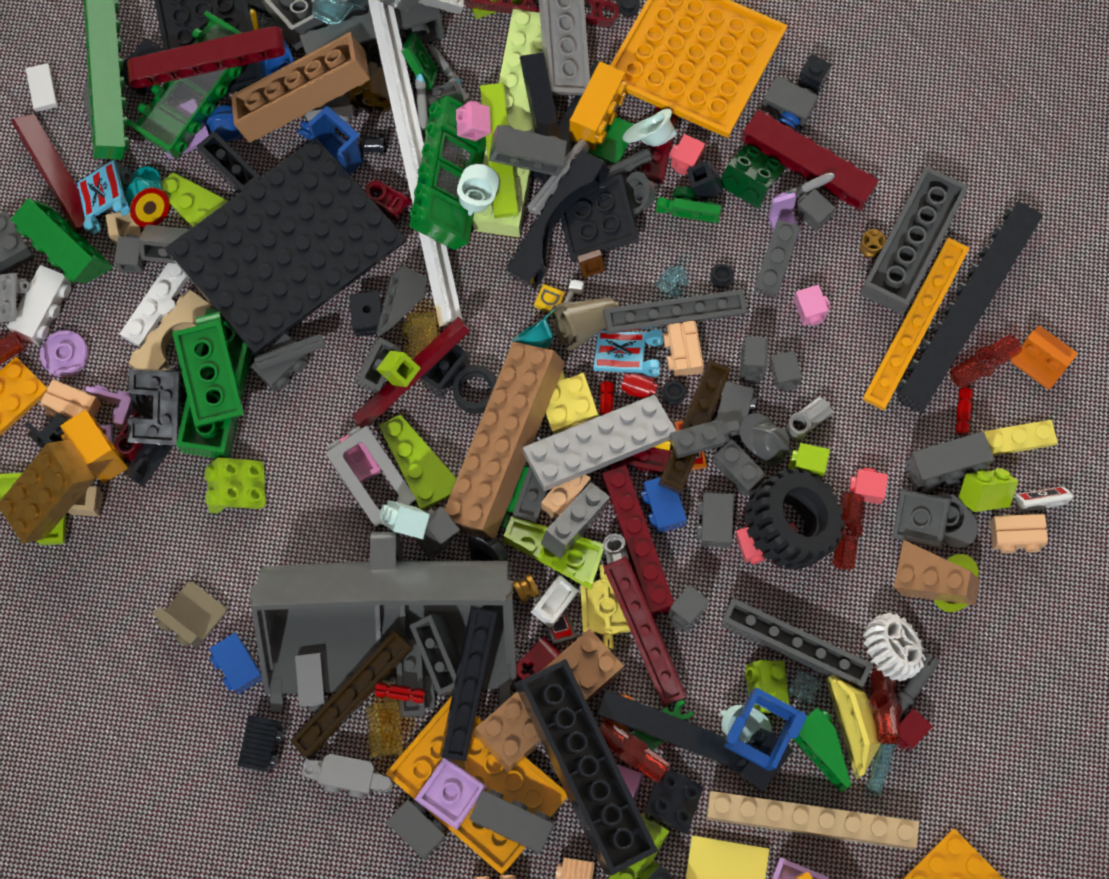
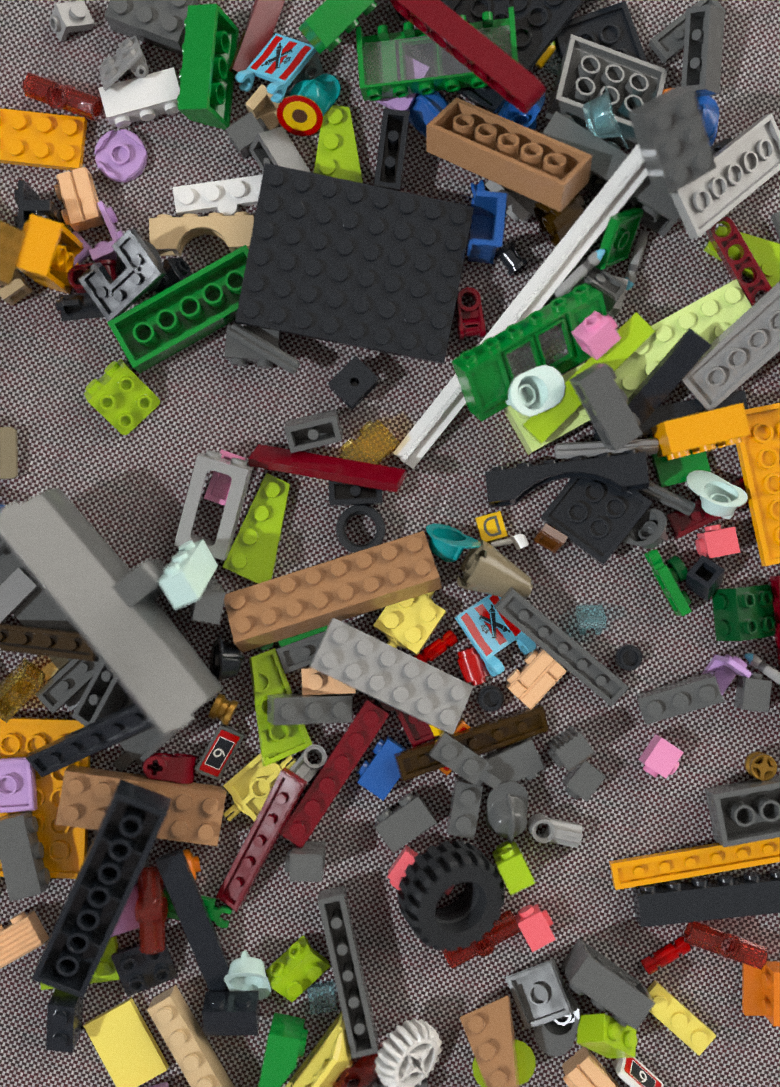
camera: 45 degrees right, 15 degrees up
(209, 331) = (221, 271): green hinge -> none
(398, 368) = (317, 456): lime brick -> none
(400, 692) = (51, 680): red axle -> none
(403, 293) = (392, 402): dark grey slope -> none
(554, 601) = (230, 742): white tile -> none
(791, 729) = (262, 1031): blue piece -> none

